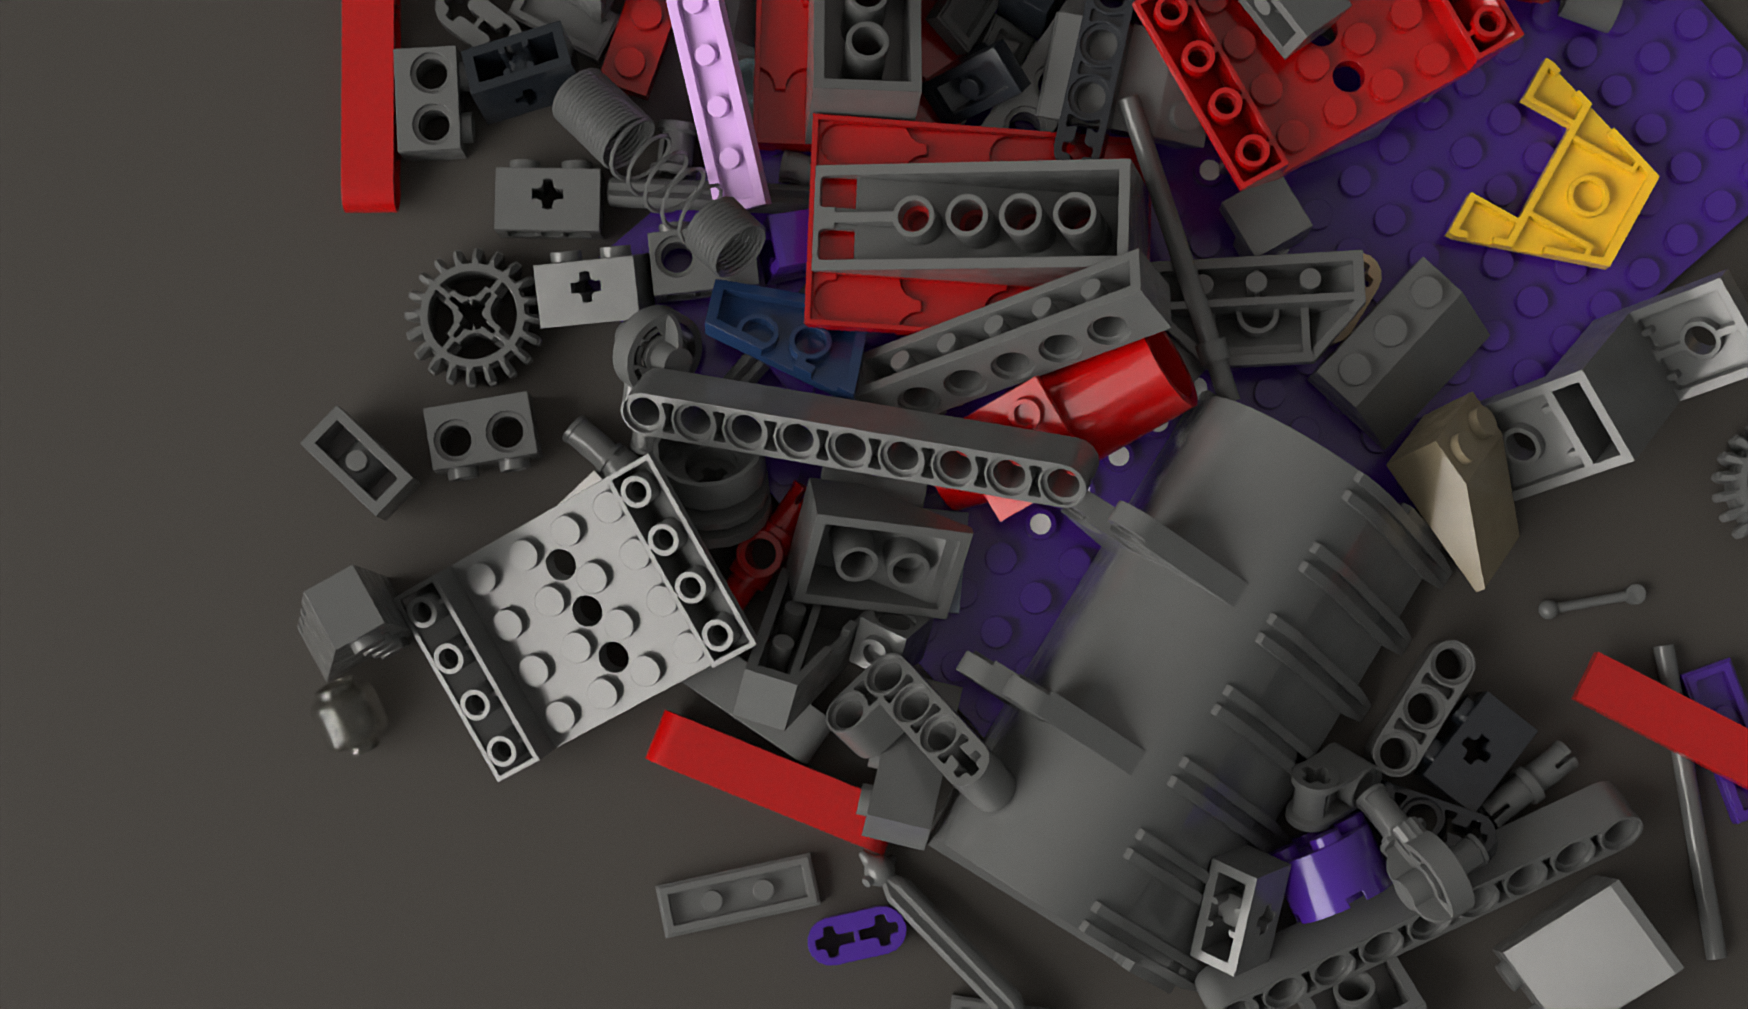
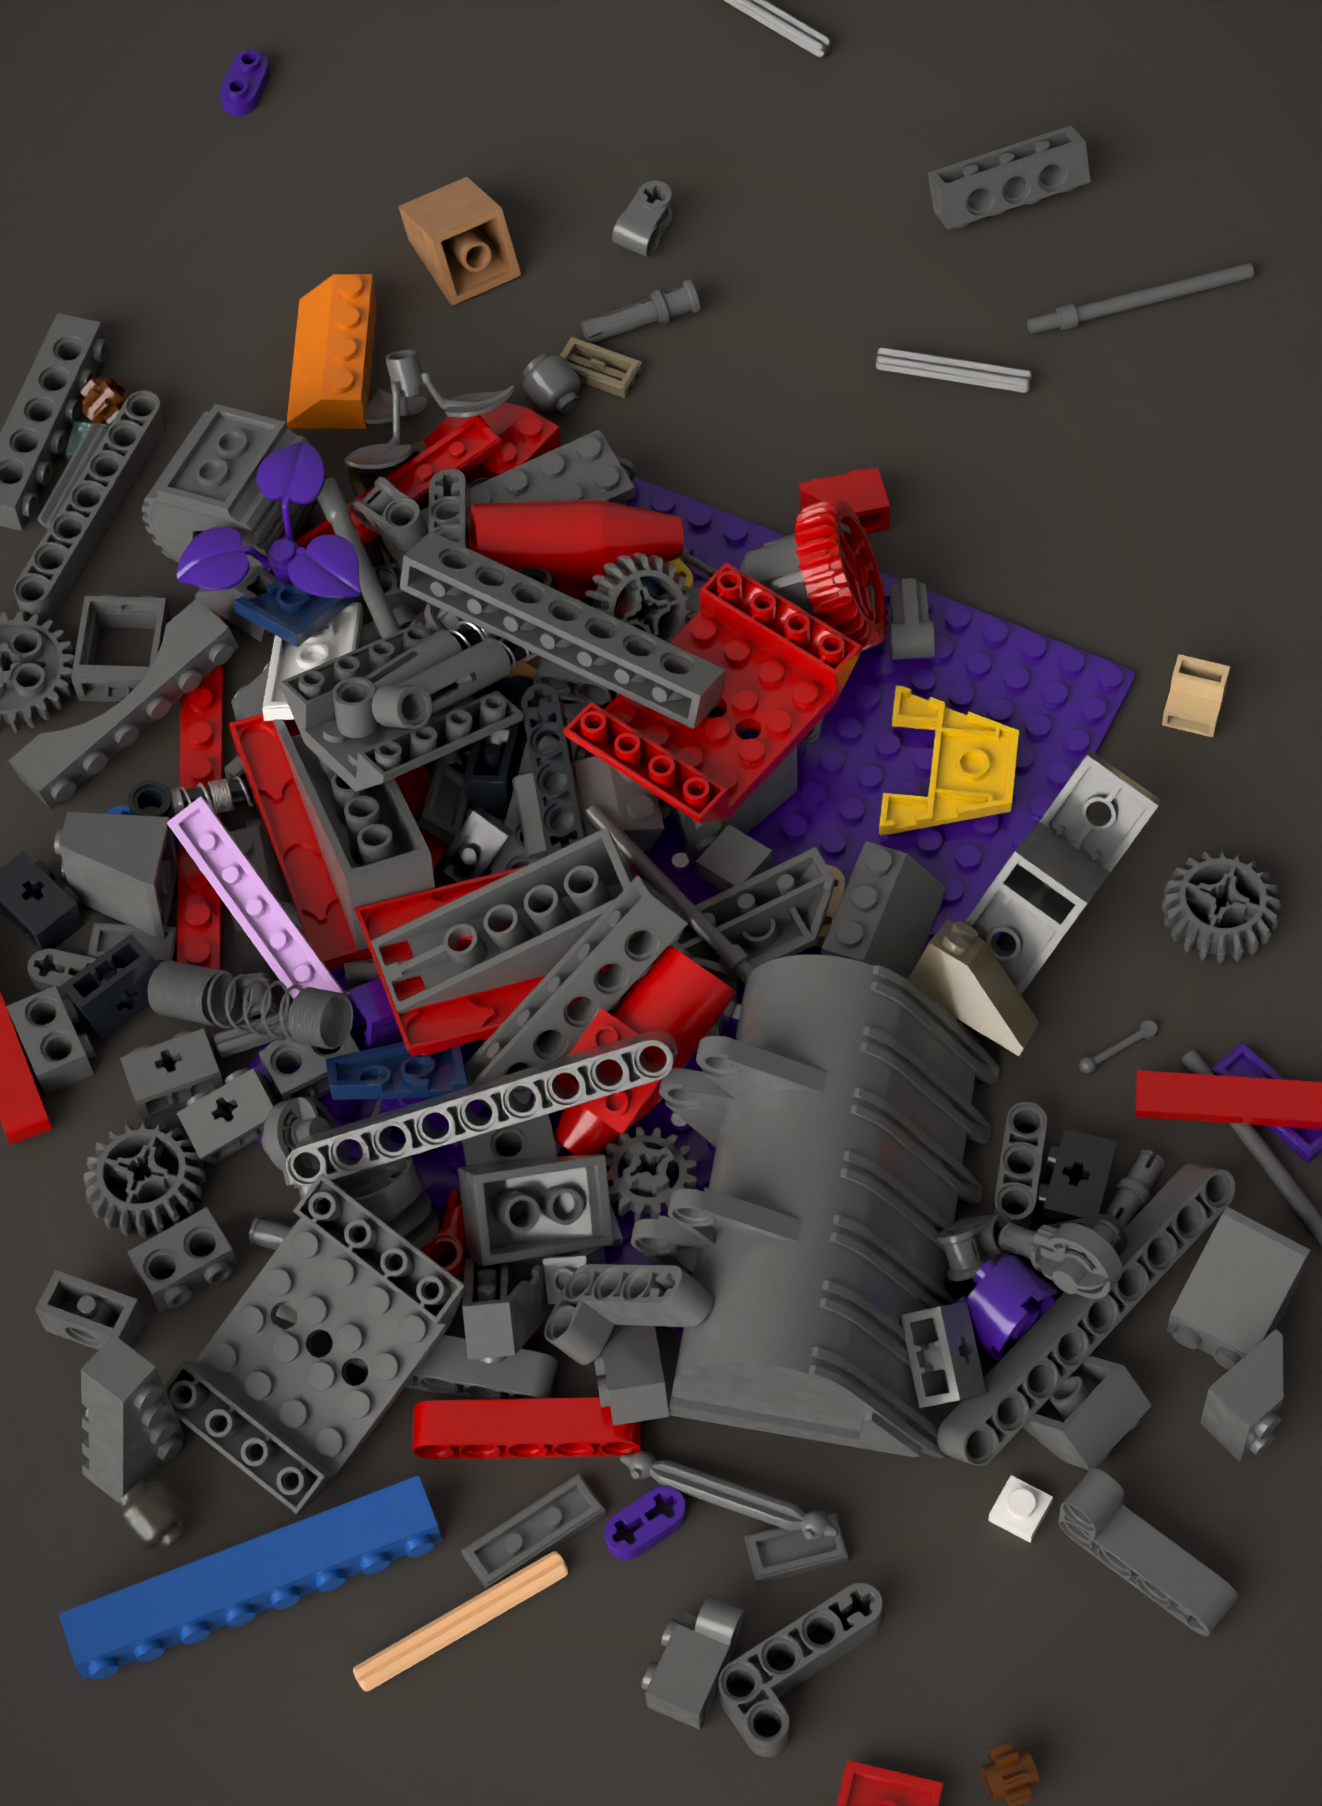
camera: 15 degrees left, 25 degrees down
(426, 829) = (250, 1579): none -> blue brick
(626, 961) = (460, 1621): none -> light nougat axle
(1019, 578) = (647, 1173): none -> dark grey gear

